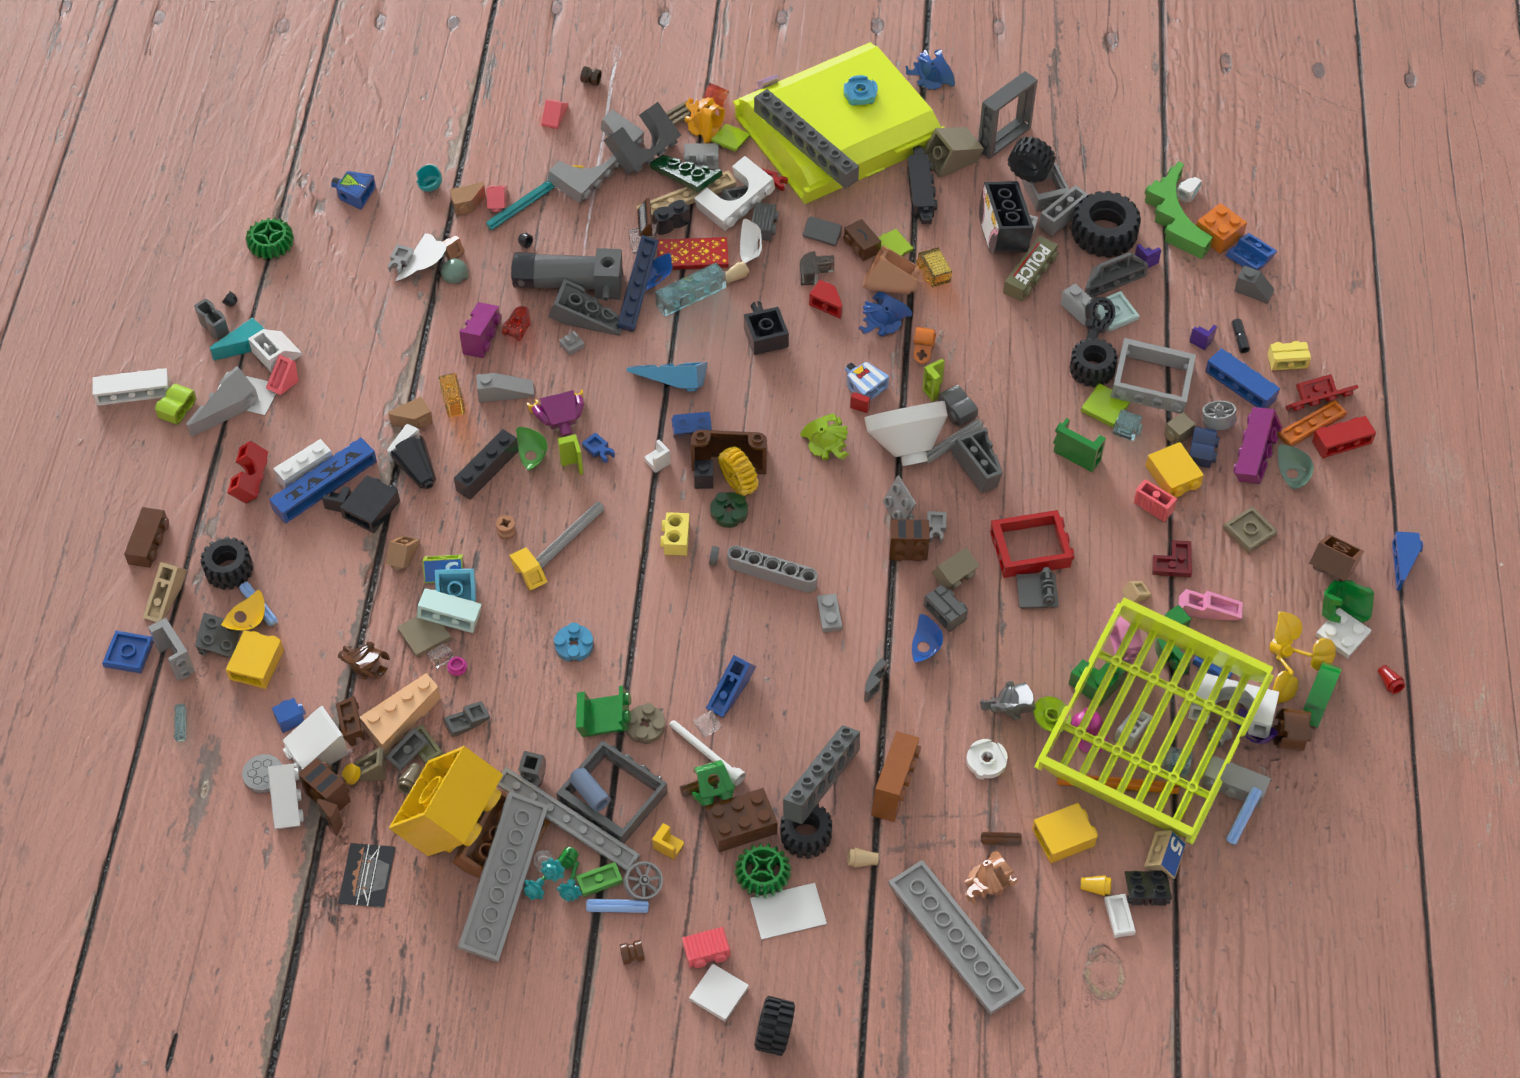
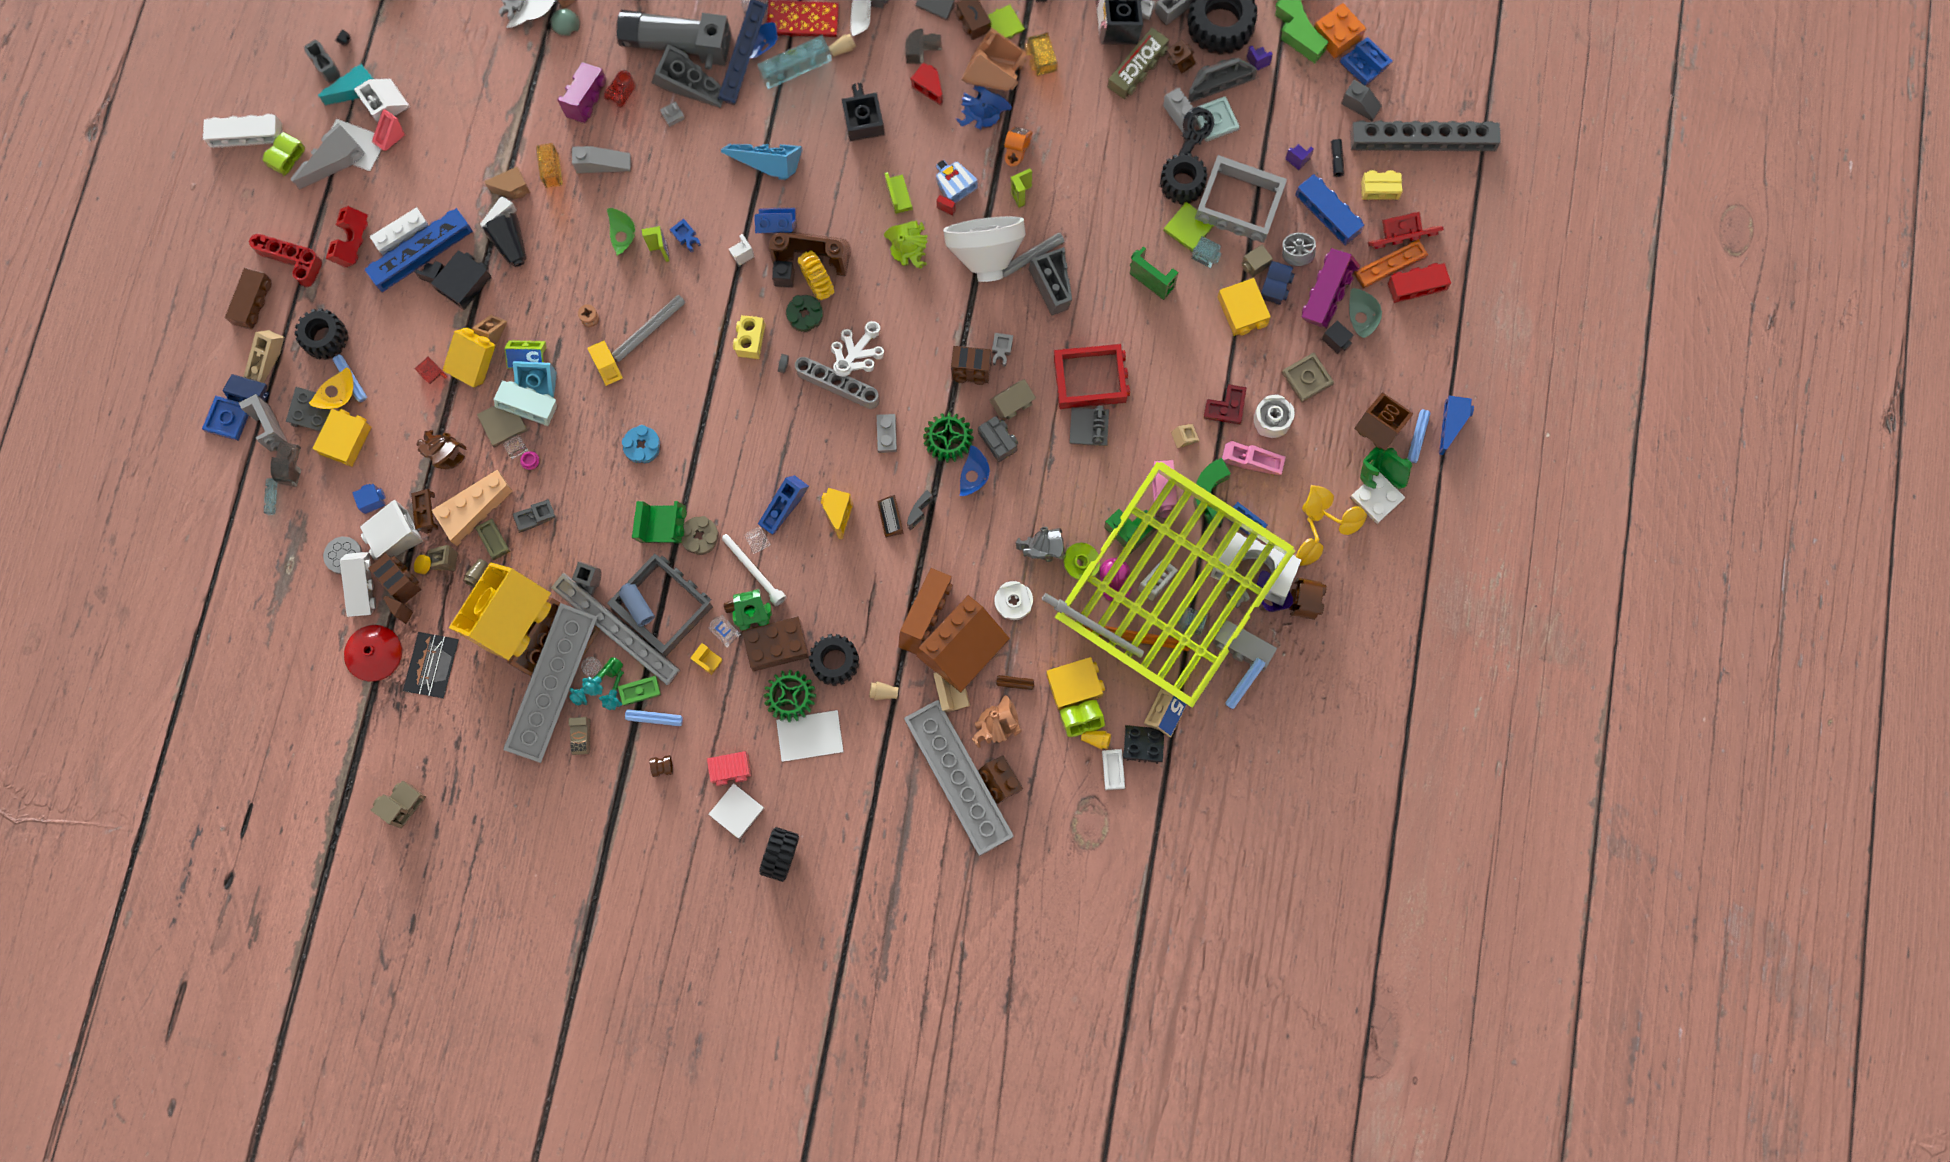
camera: 10 degrees right, 20 degrees up
(141, 619) = (241, 388): none -> dark blue hinge
(196, 690) = (284, 466): none -> clear smoke brick
(200, 495) = (284, 255): none -> red beam
(306, 877) = (384, 654): none -> red dish
(344, 588) = (429, 370): none -> clear red panel
(346, 1015) = (399, 806): none -> dark tan brick
(386, 570) = (469, 357): none -> yellow brick
(407, 749) = (475, 543): dark grey slope -> none
(486, 464) = (575, 245): black brick -> none
(538, 928) = (580, 735): none -> dark tan leg
(559, 410) = (651, 191): magenta torso -> none
(643, 880) = (678, 697): light grey wheel -> none
(683, 812) = (723, 630): none -> clear brick
(780, 549) = (857, 351): none -> white plant
(789, 684) = (837, 509): none -> yellow slope
(809, 396) = (898, 193): none -> lime panel
(821, 774) = (853, 609): dark grey brick -> none
(845, 689) = (890, 516): none -> slope
(884, 616) = (949, 421): none -> green gear
(899, 501) = (968, 323): light grey hinge -> none
(936, 850) = (950, 697): none -> tan panel
(940, 801) = (963, 644): none -> dark orange slope
(958, 405) = (1041, 216): dark grey brick -> none
(1001, 934) = (999, 779): none -> reddish brown bracket
(1042, 747) = (1061, 606): none -> light grey bar
(1072, 259) = (1181, 56): none -> reddish brown brick
(1080, 864) = (1082, 718): none -> lime brick
(1155, 500) = (1218, 340): coral brick -> none
(1224, 565) = (1283, 416): none -> white brick
(1273, 490) = (1338, 337): none -> black brick
(1321, 691) = (1343, 560): green arch -> none
(1322, 311) = (1417, 142): none -> dark grey brick
(1373, 570) = (1418, 436): none -> light blue axle
(1391, 680) = (1414, 553): red cone -> none

